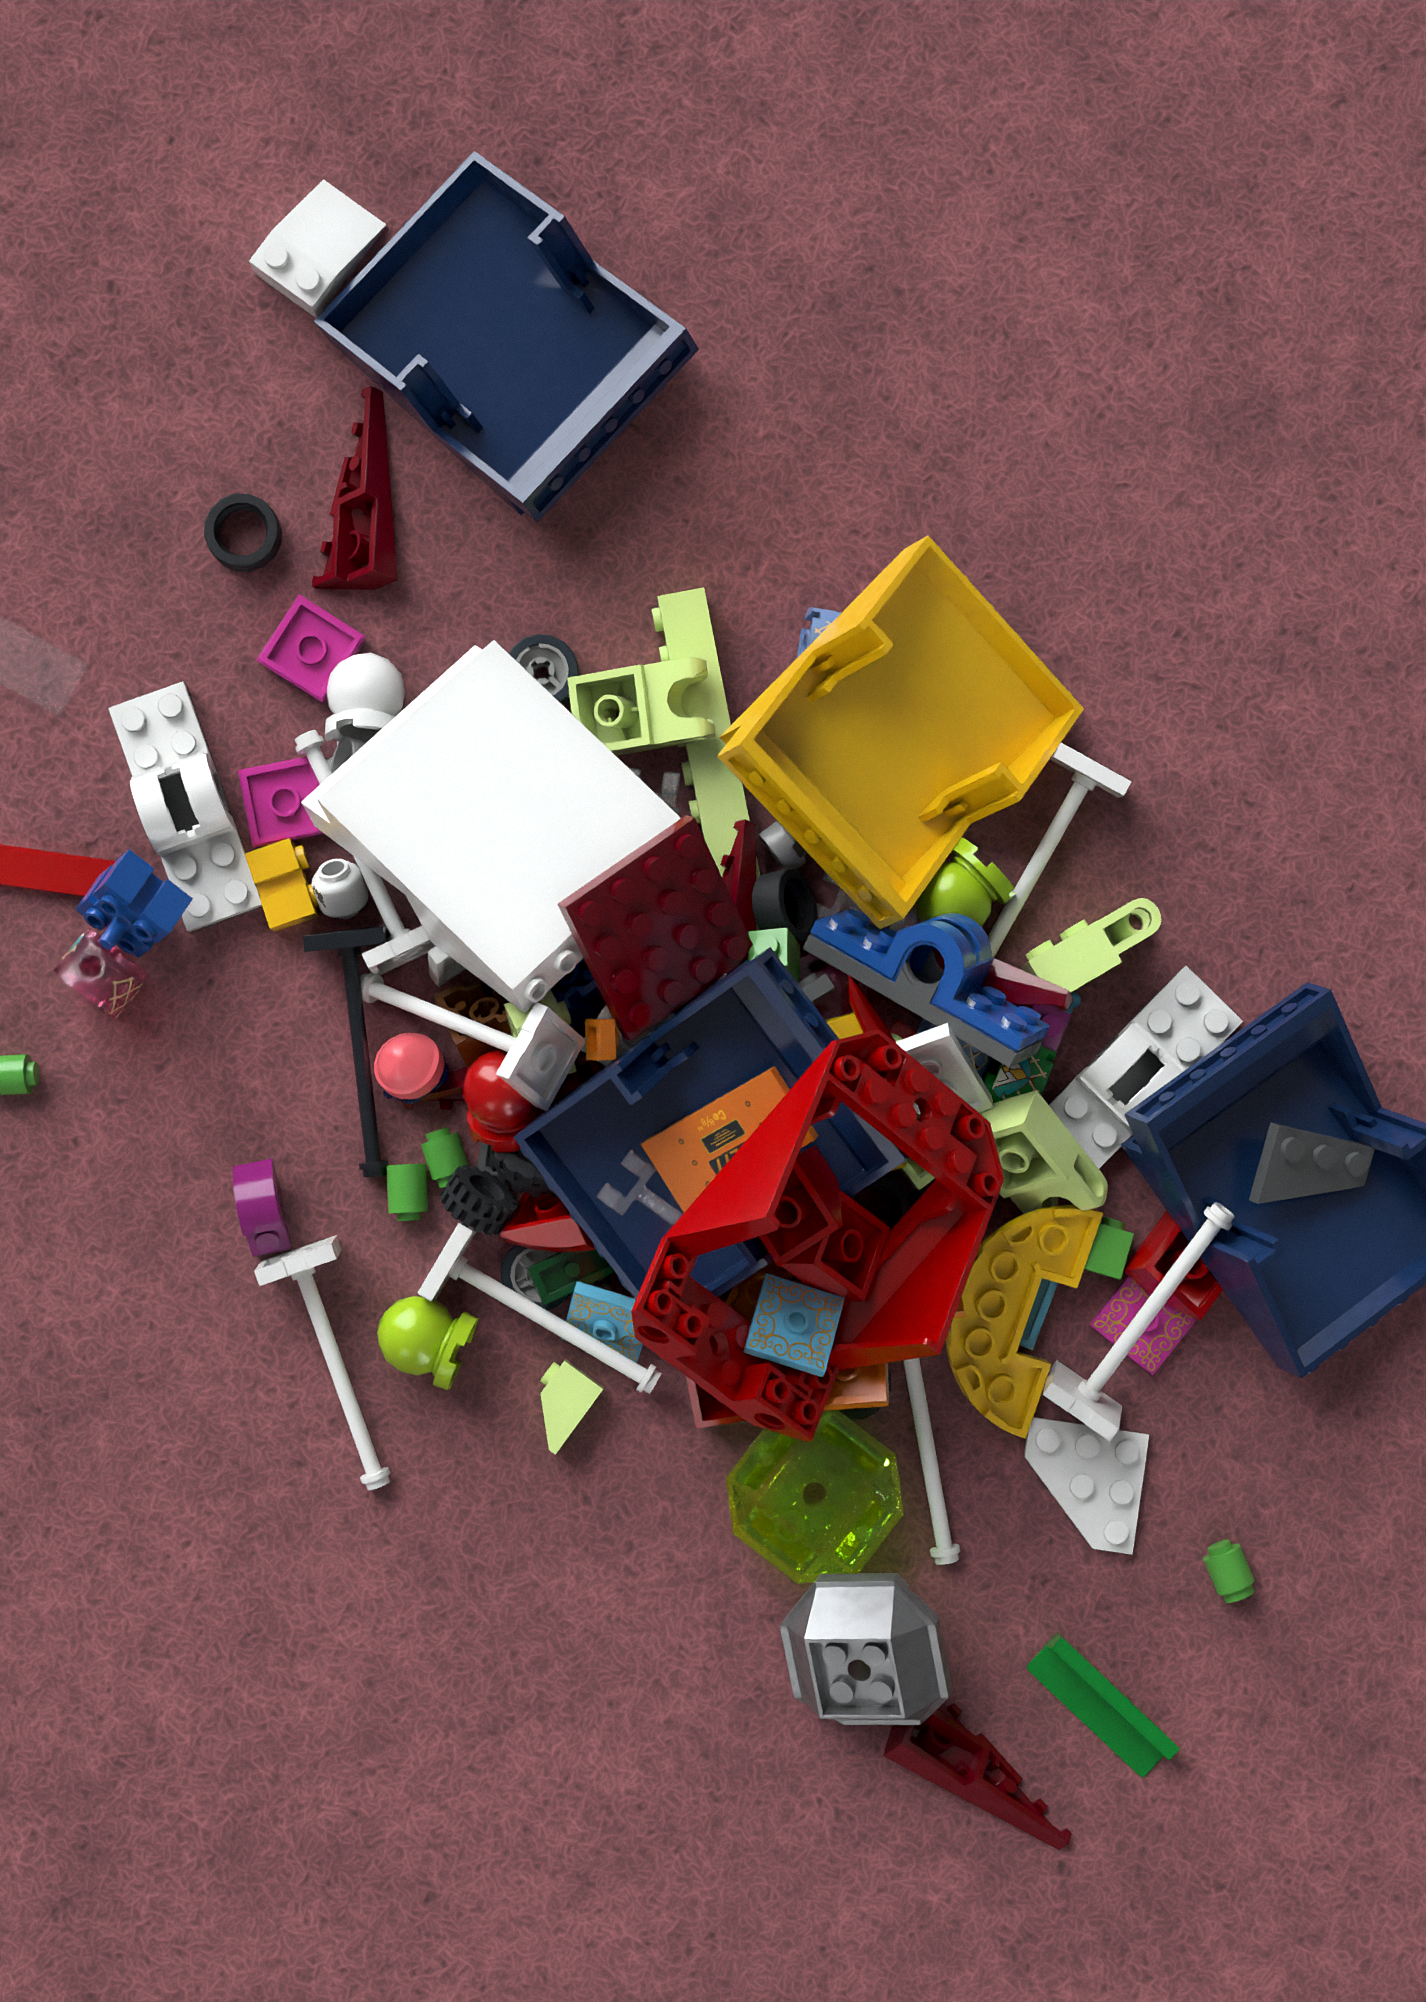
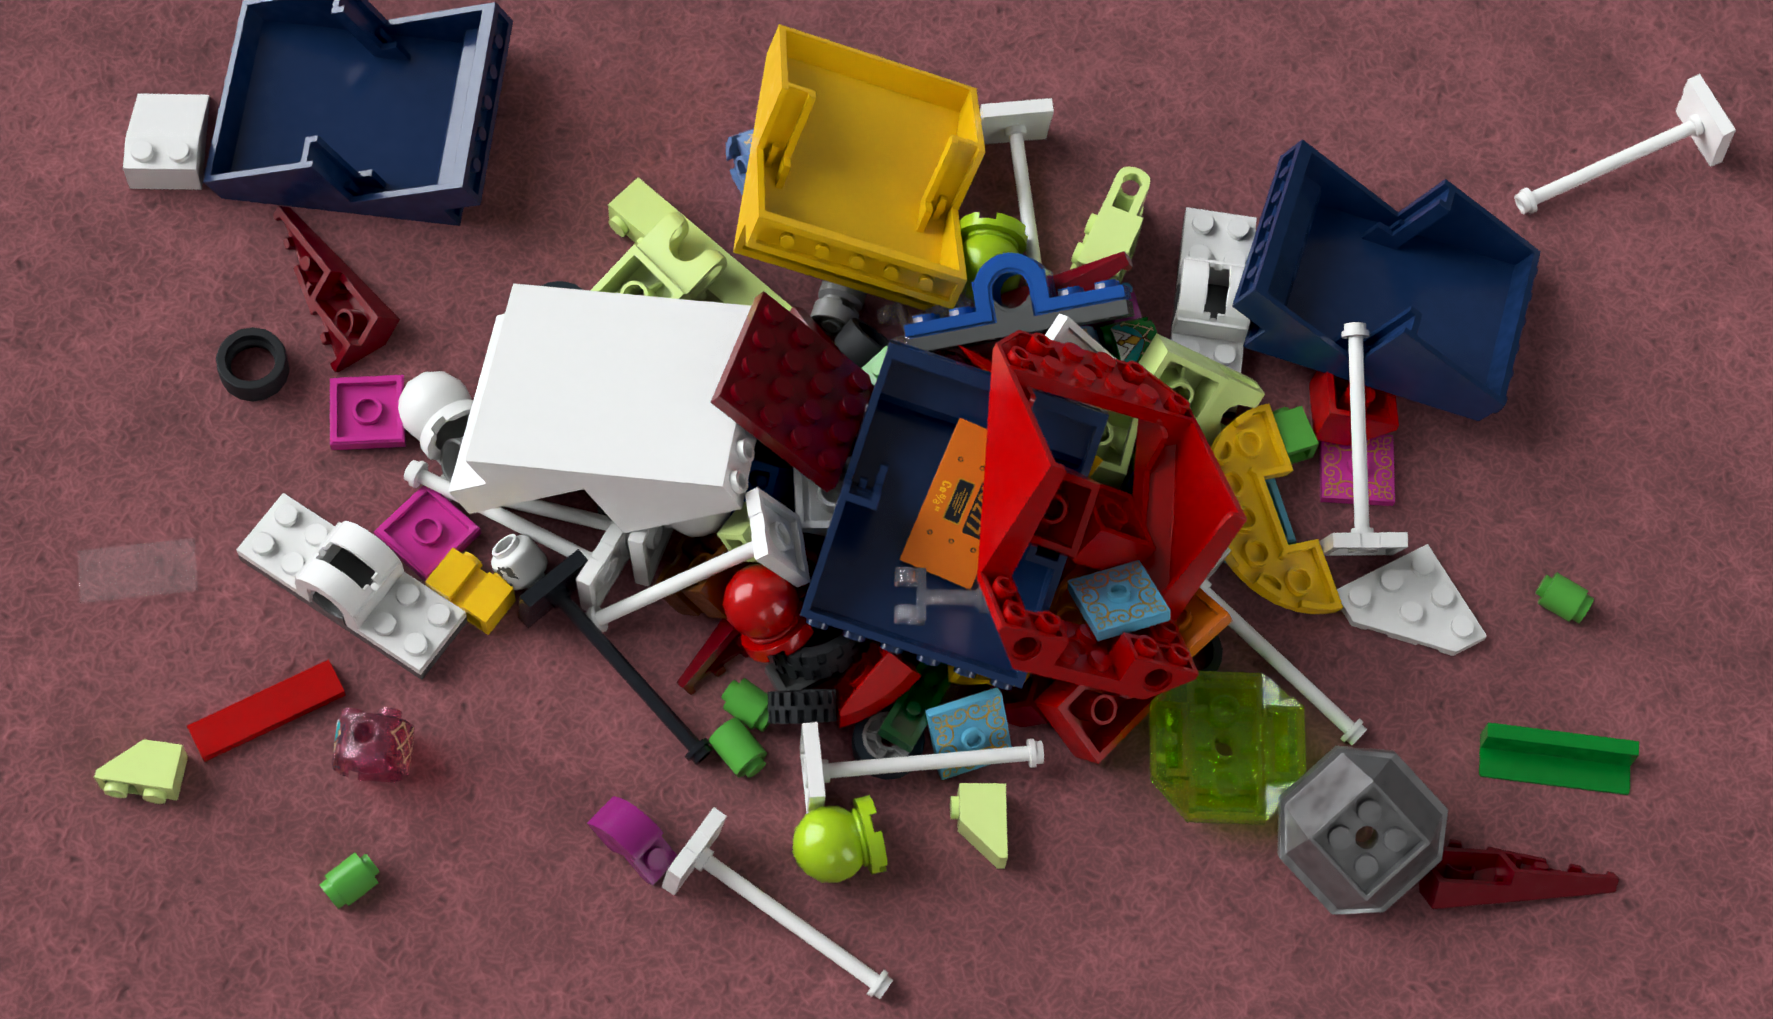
camera: 40 degrees left, 20 degrees down
(132, 905) = (363, 668): blue brick -> none
(410, 1067) = (672, 653): coral hair -> none
(601, 1039) = (811, 502): orange plate -> none
(1307, 1164) = (1382, 269): dark grey wing -> none

